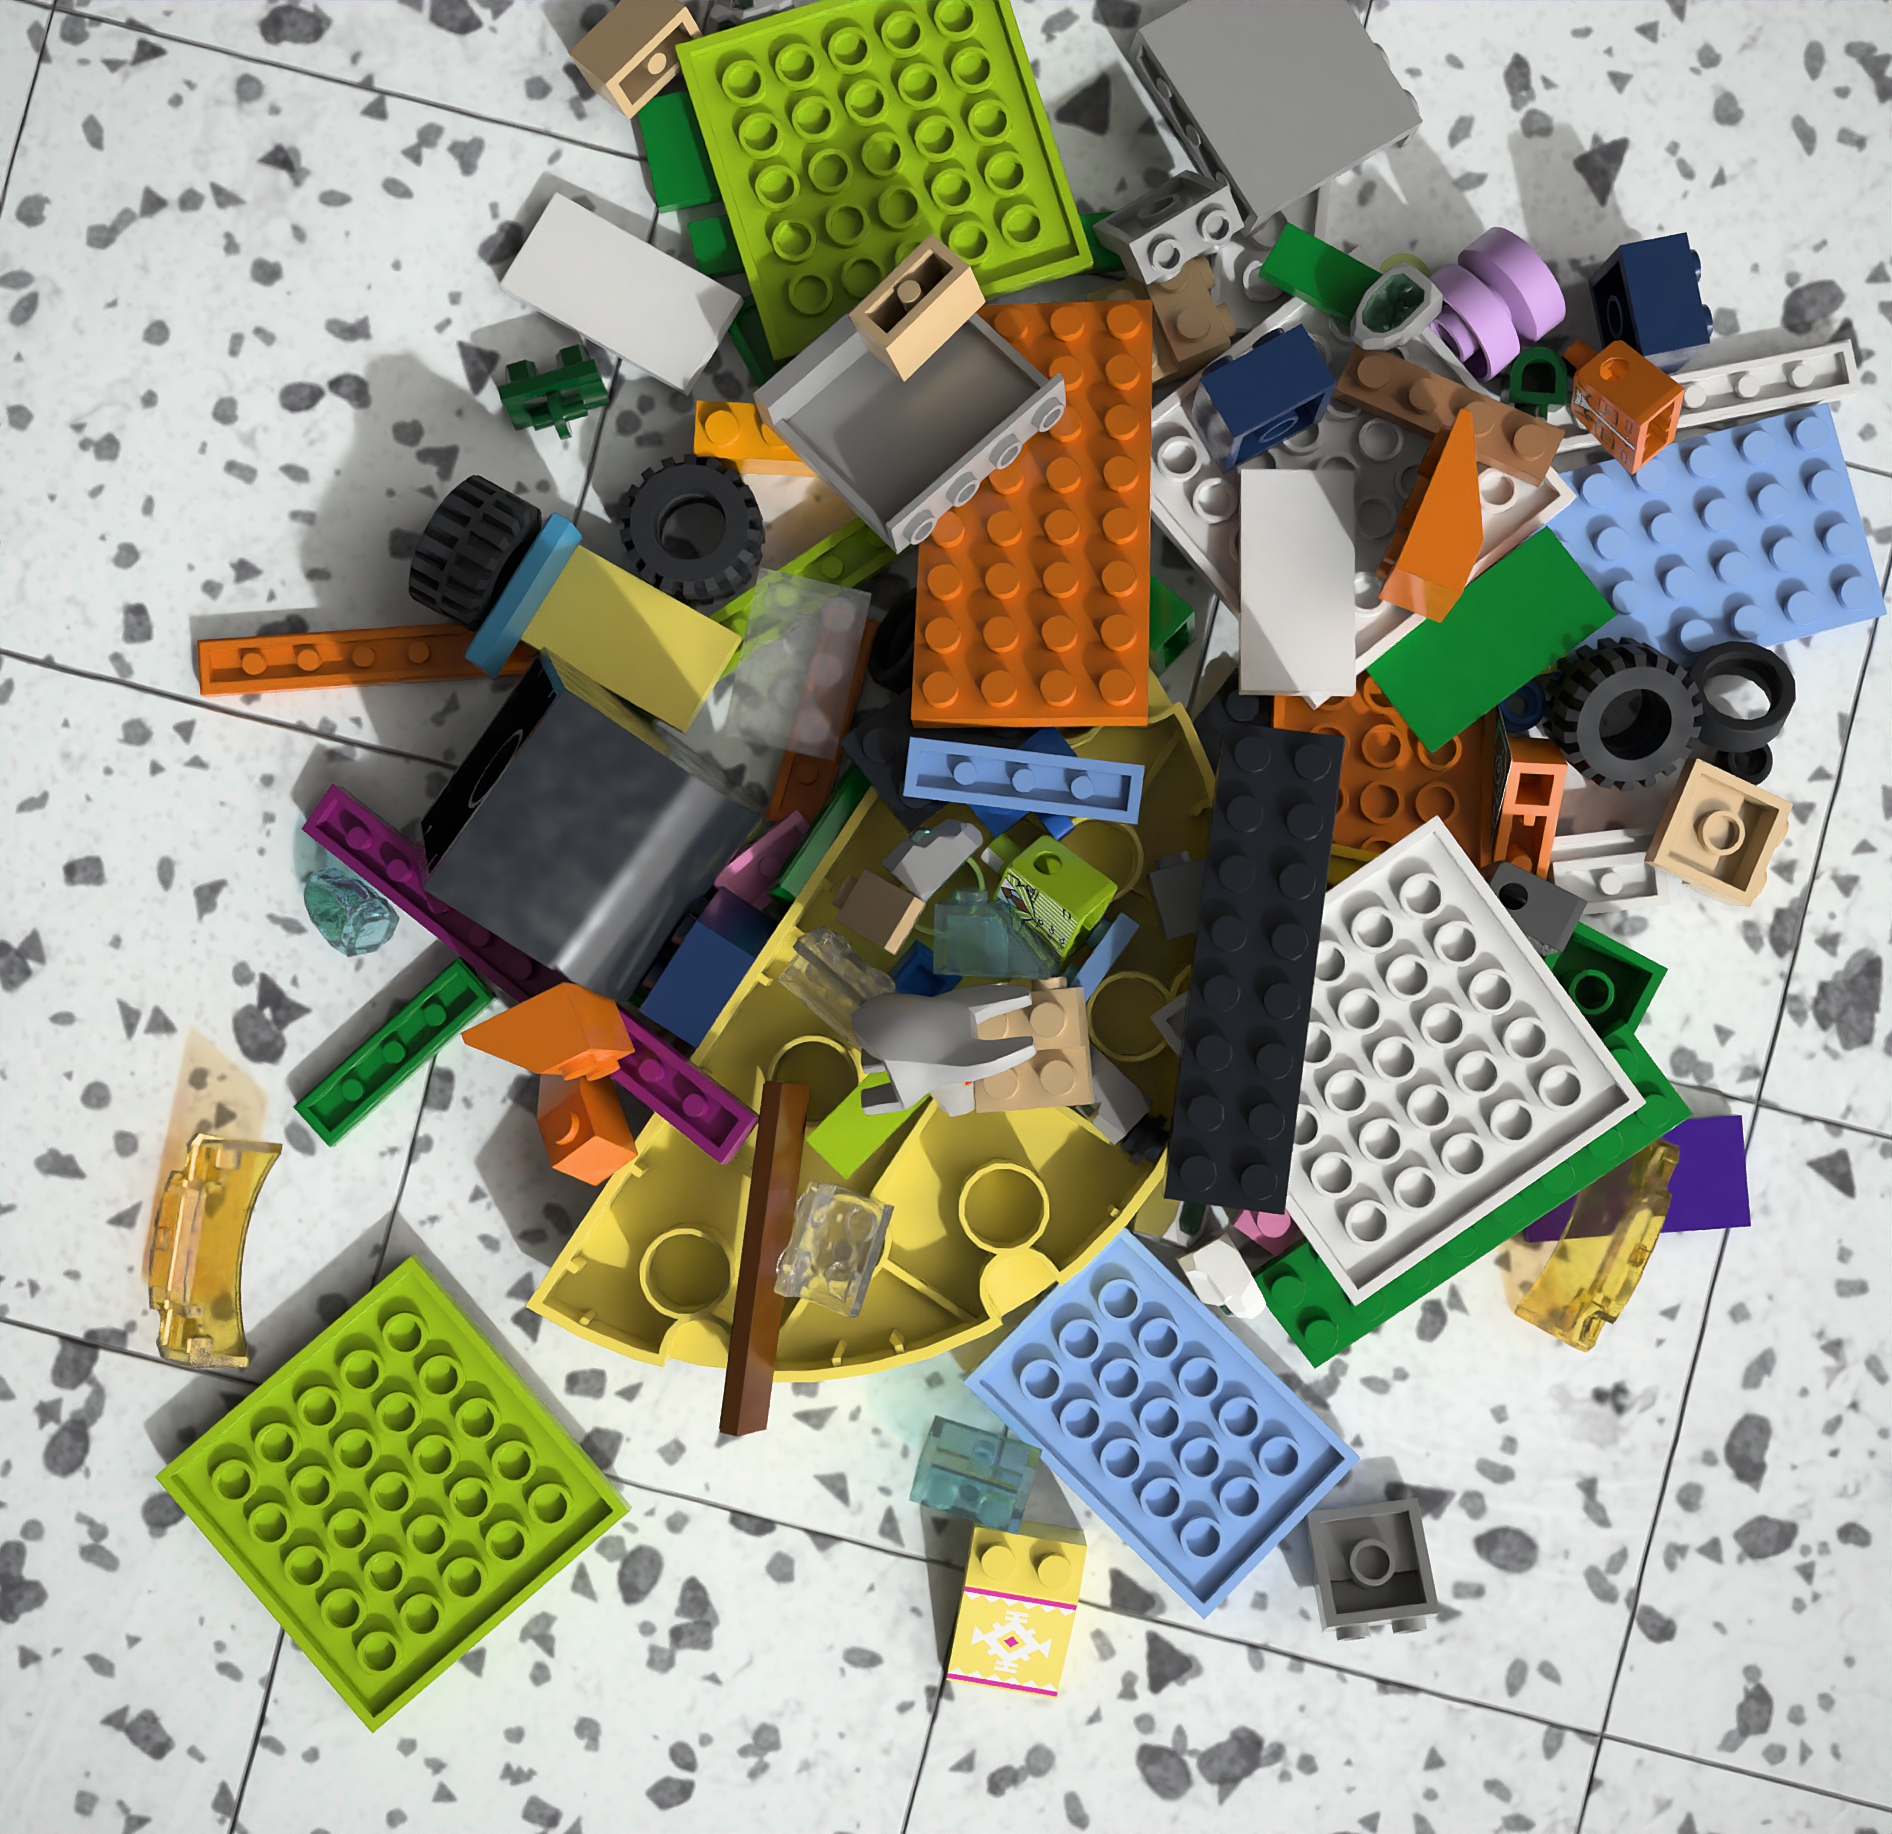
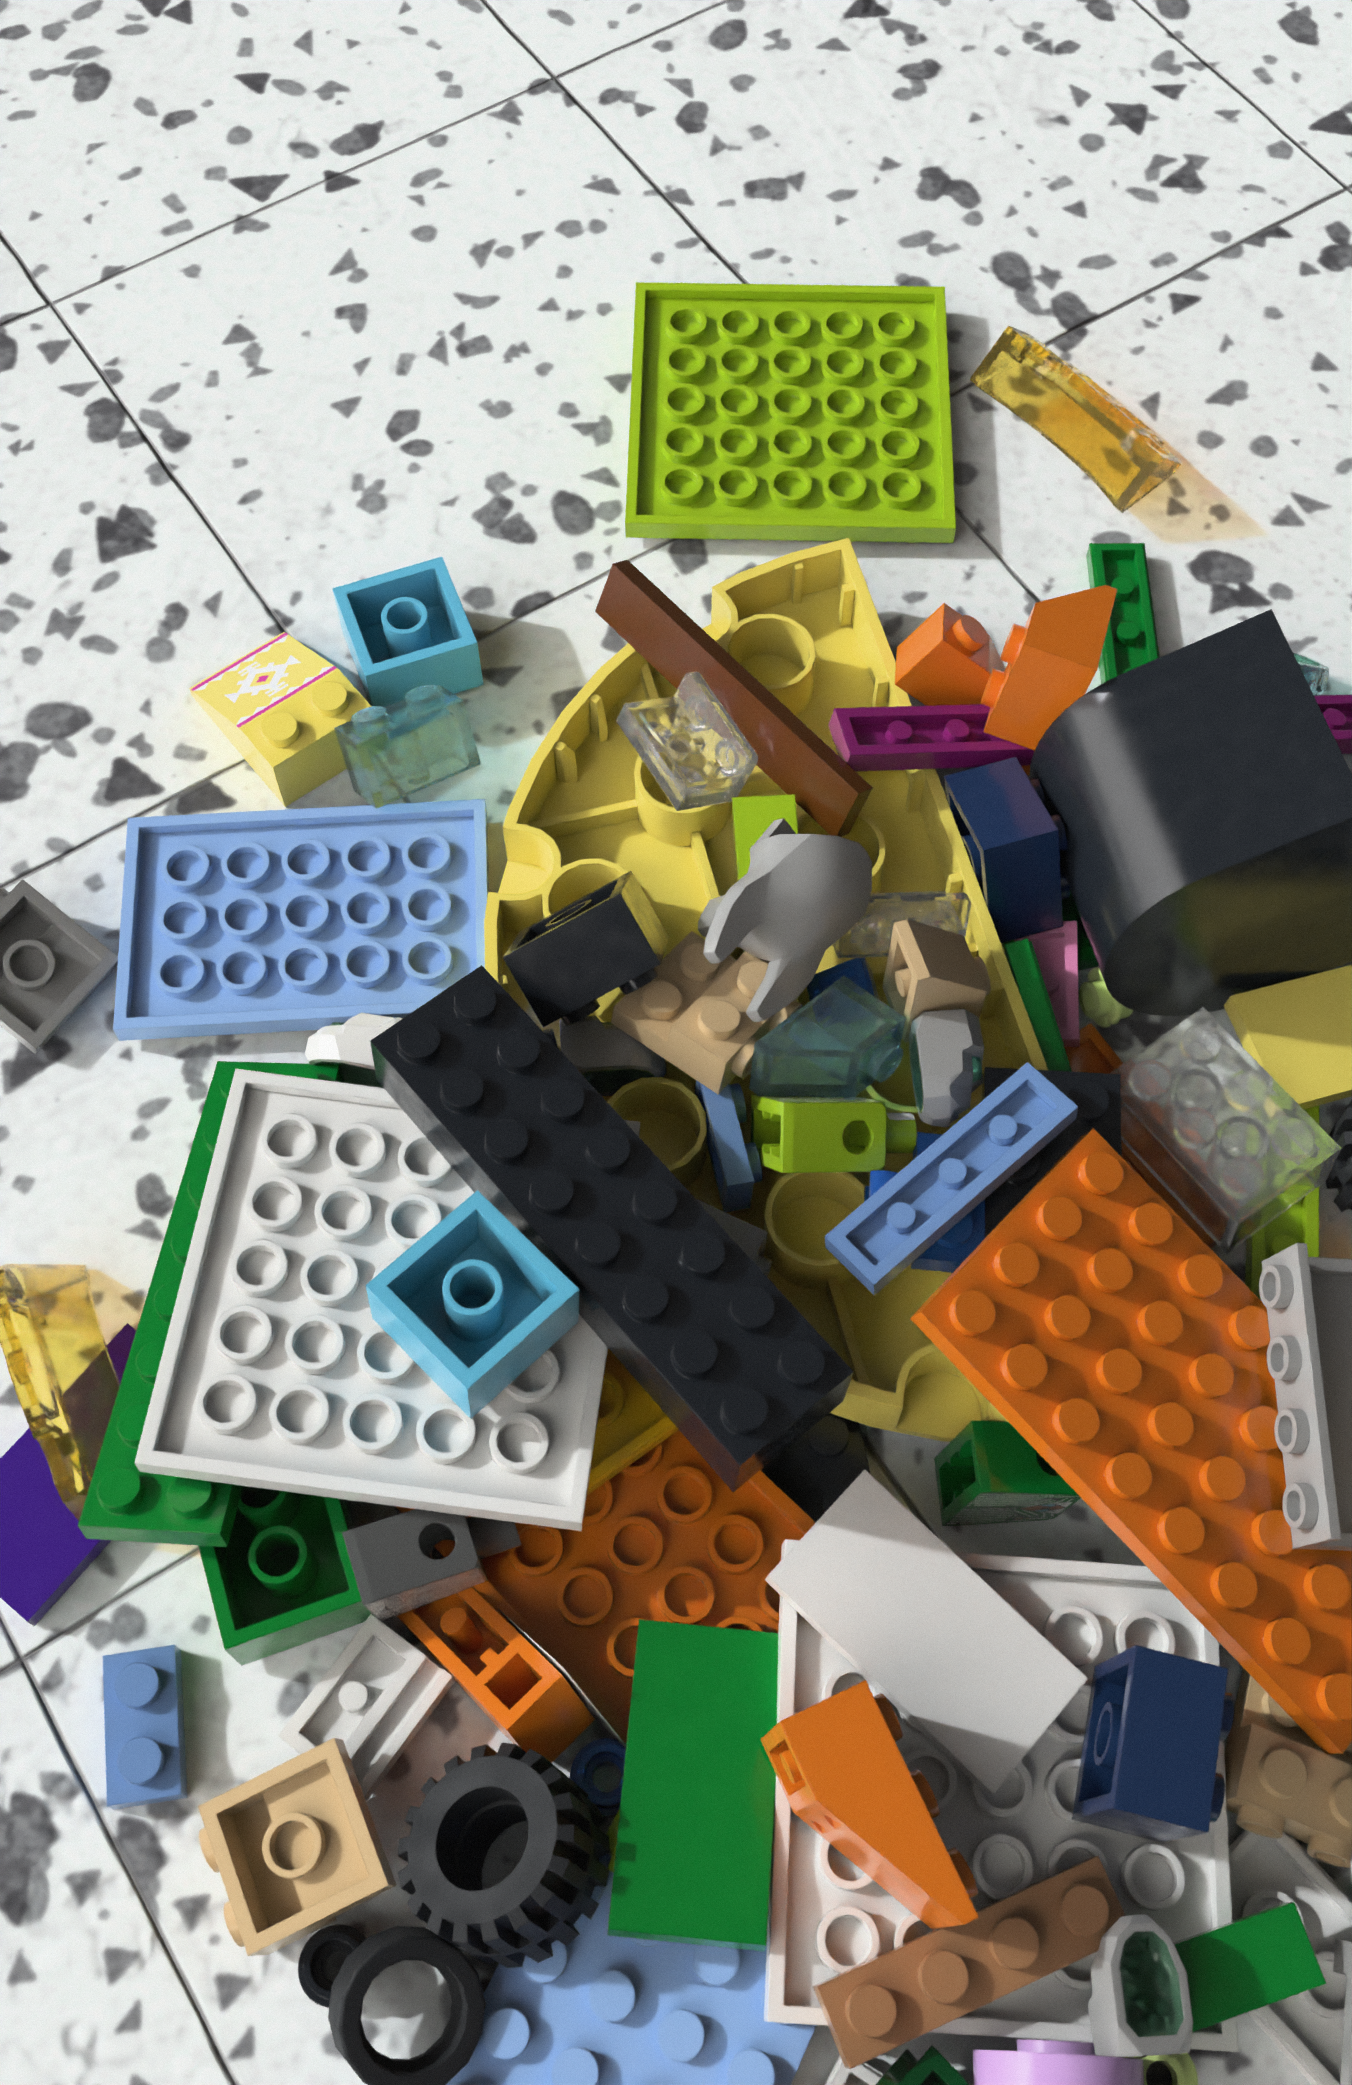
camera: 130 degrees right, 25 degrees down
(883, 1570) = (408, 632): none -> medium azure brick
(1063, 1161) = (588, 951): none -> black brick
(1385, 987) = (473, 1303): none -> medium azure brick
(1728, 991) = (144, 1727): none -> medium blue plate

